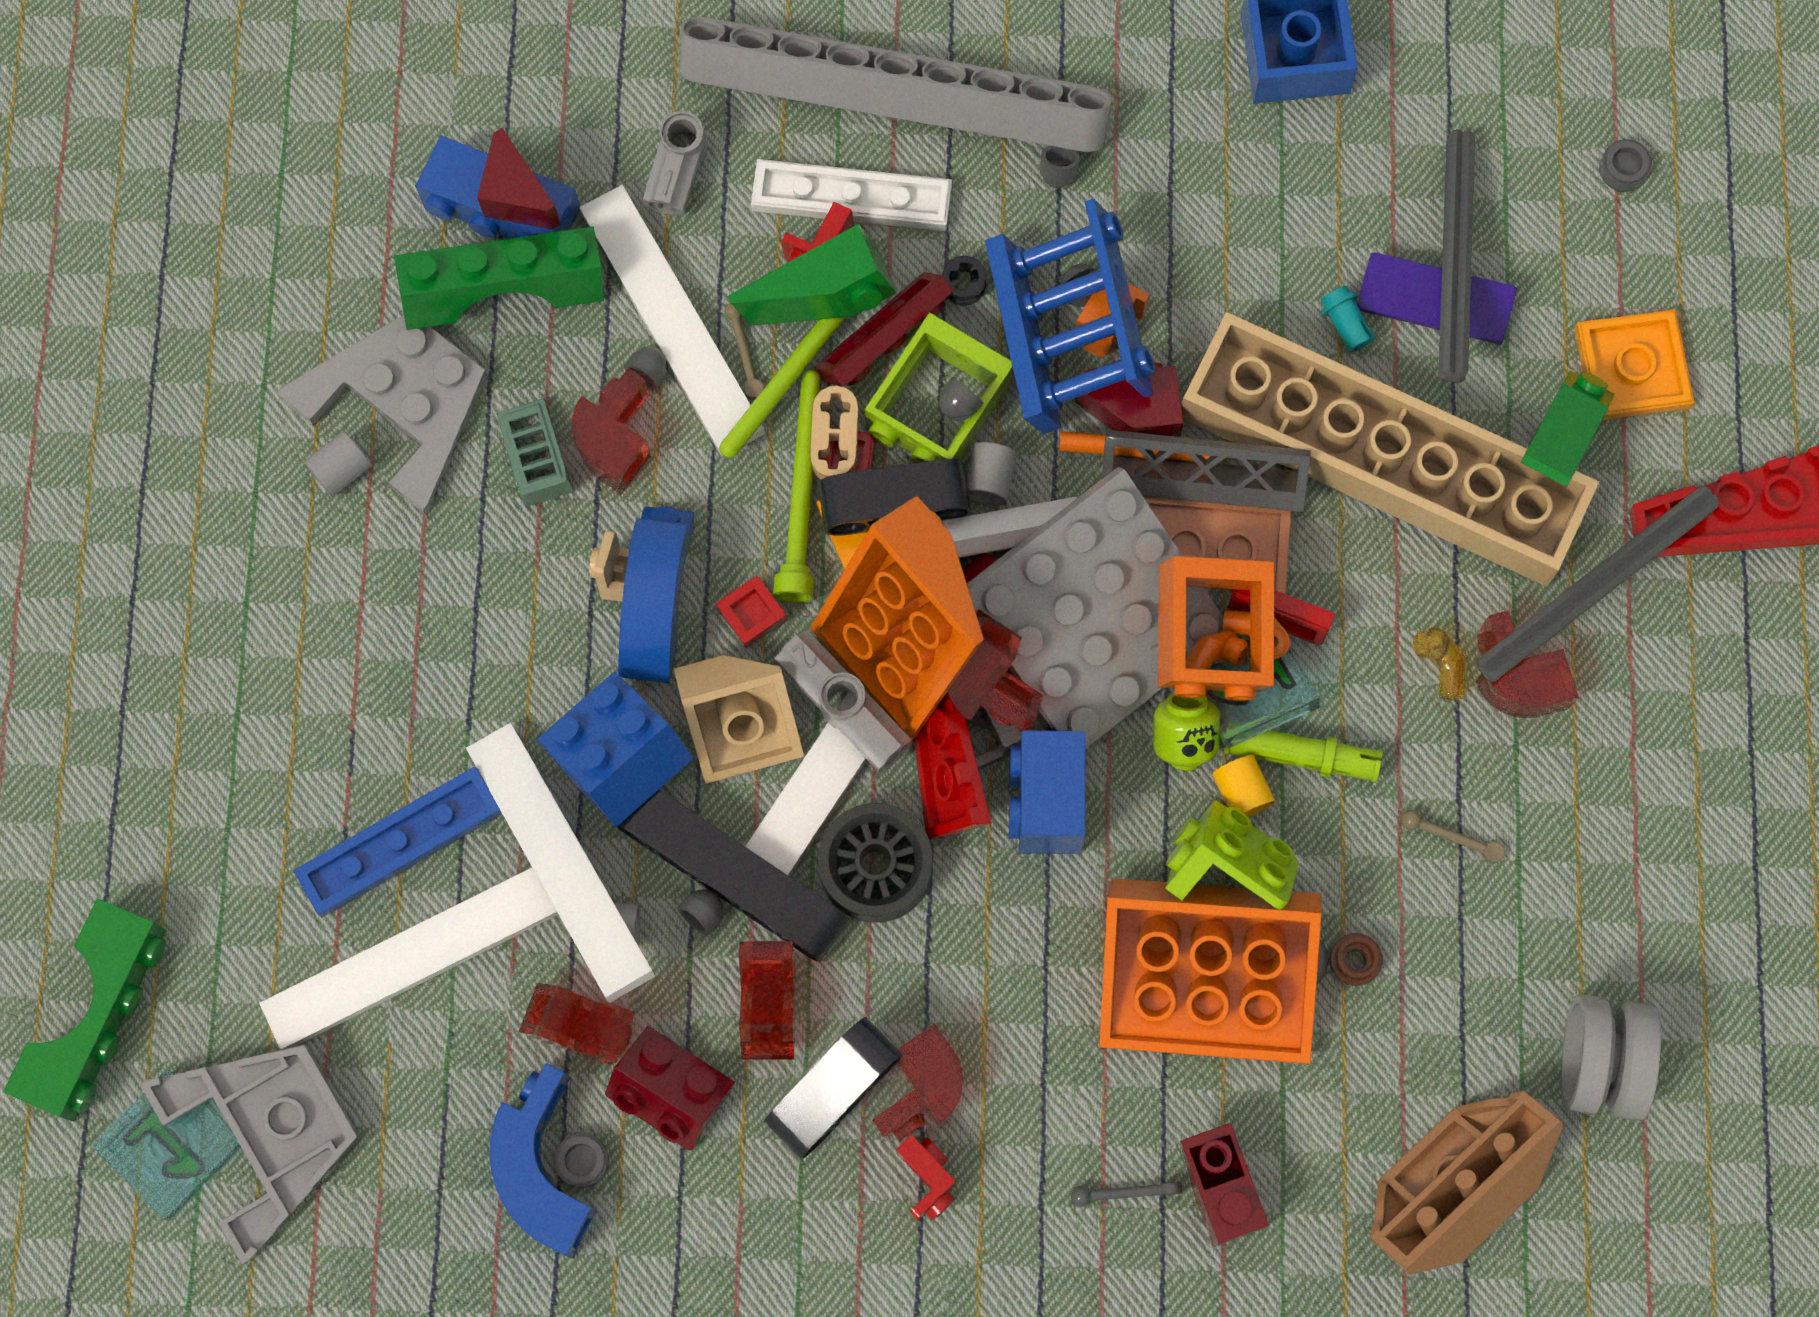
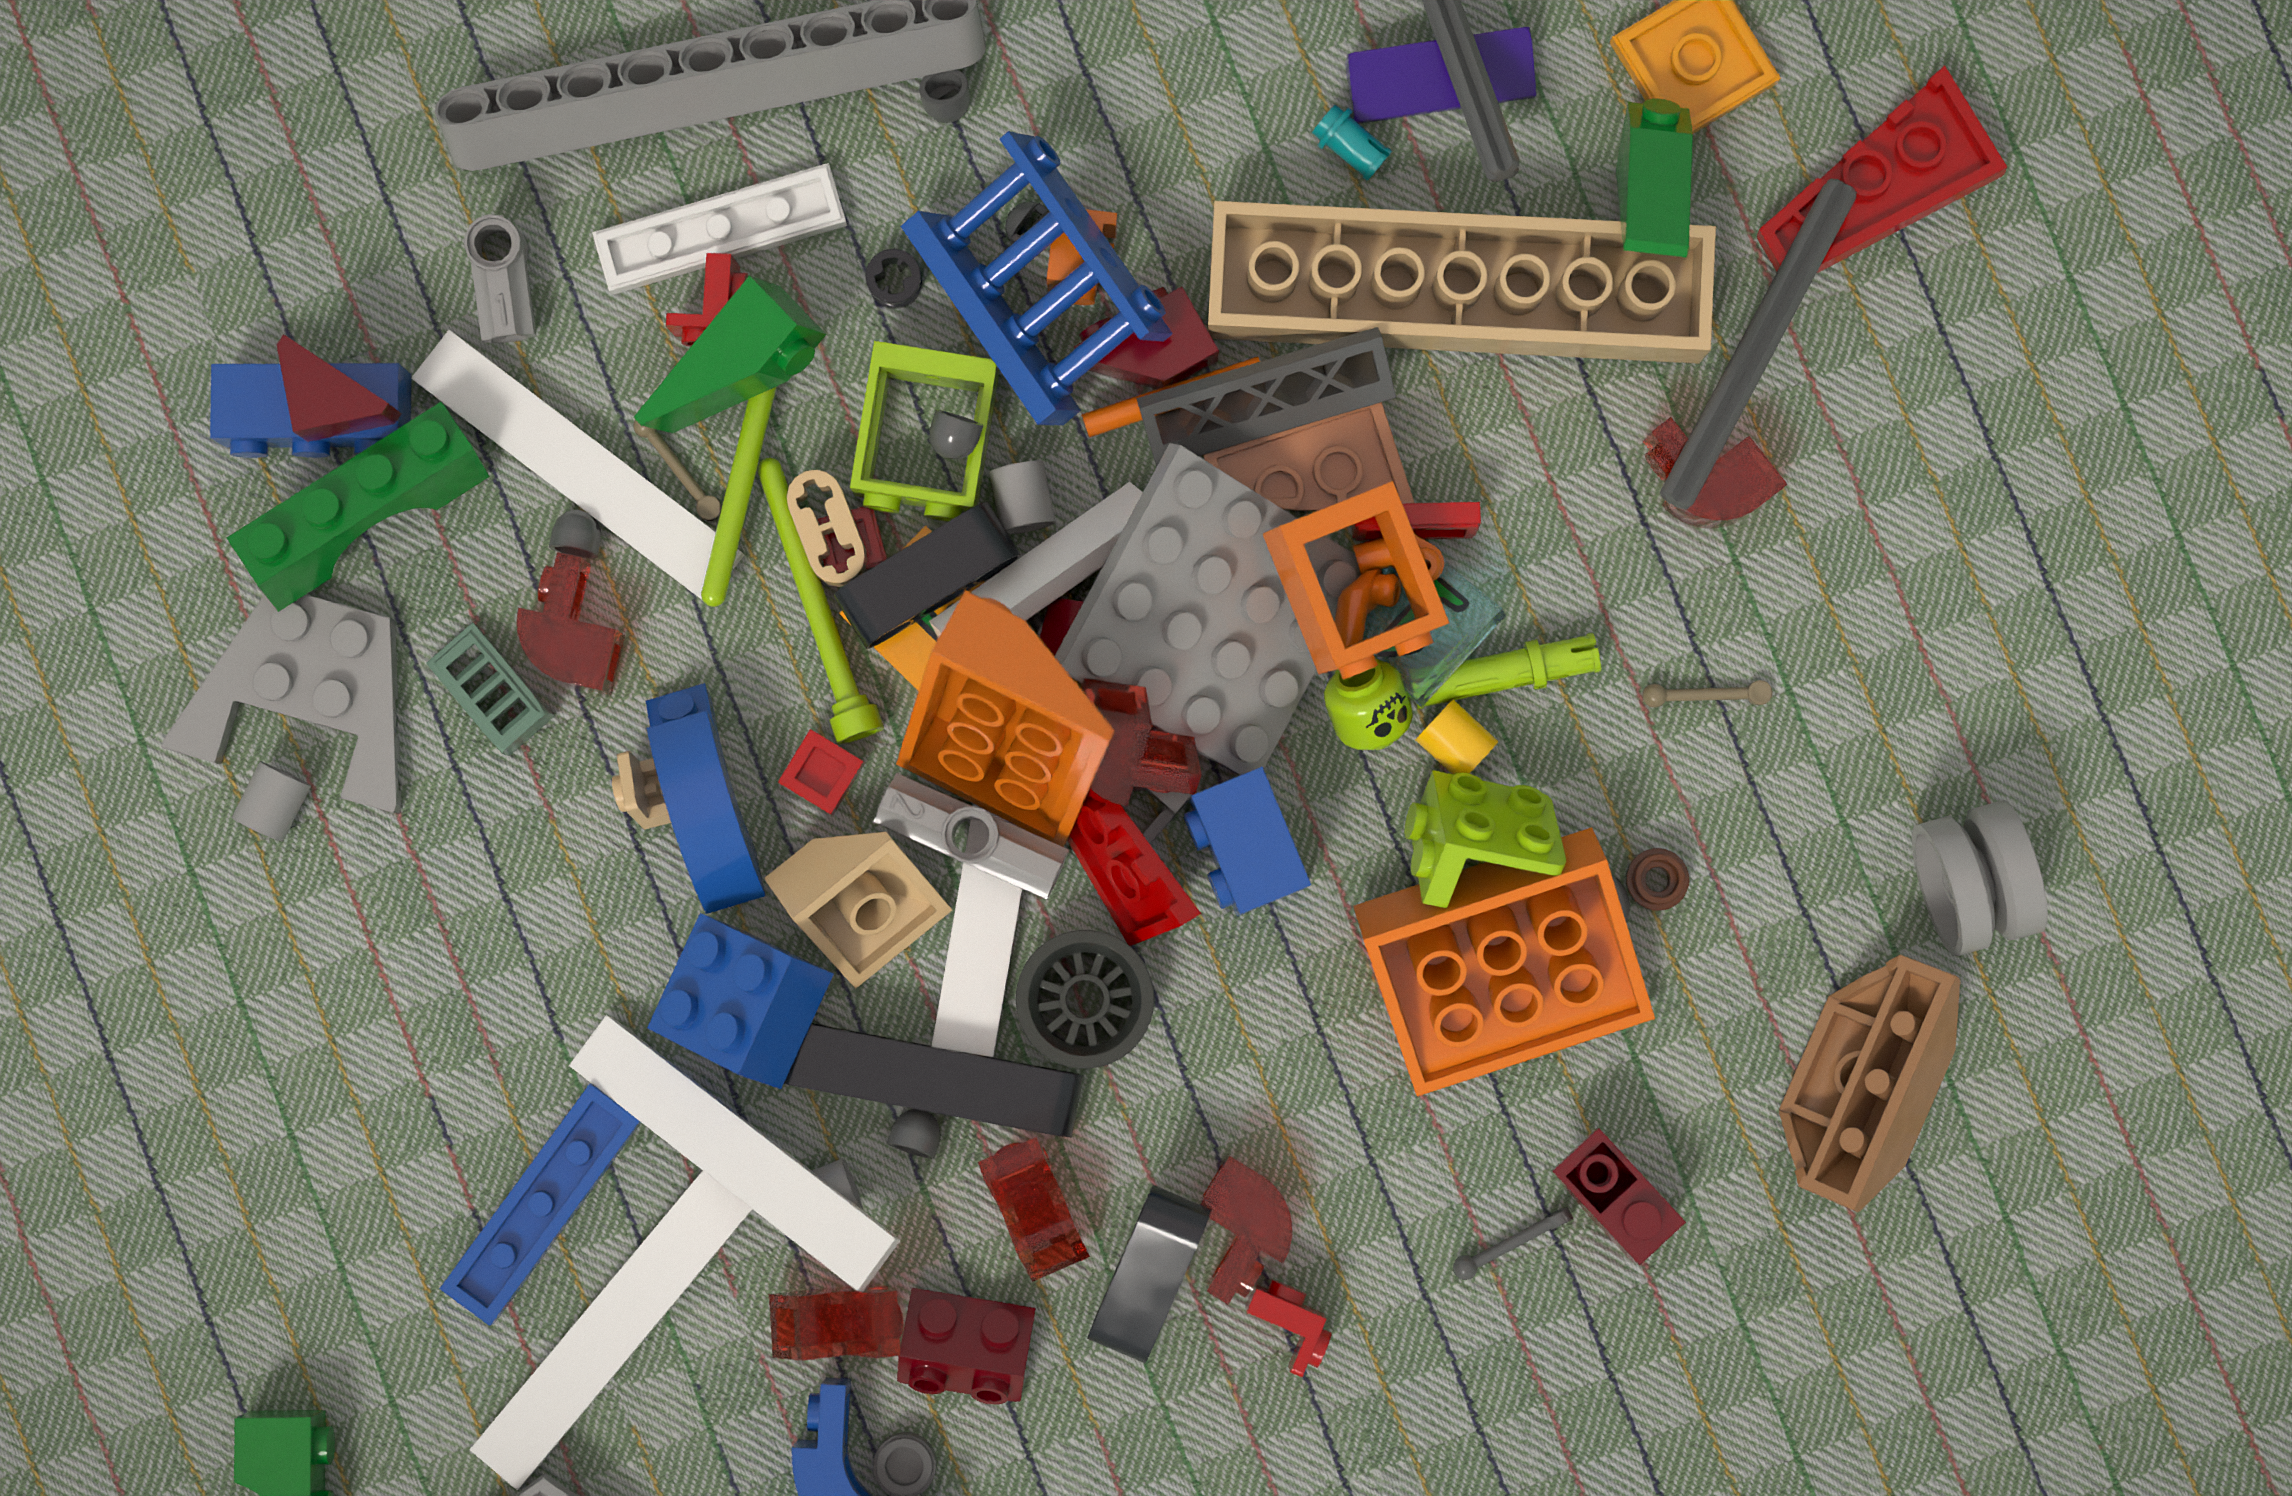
camera: 25 degrees left, 10 degrees up
(884, 330) = (829, 378): dark red plate -> none
(1447, 656) = (1621, 492): clear yellow arm -> none

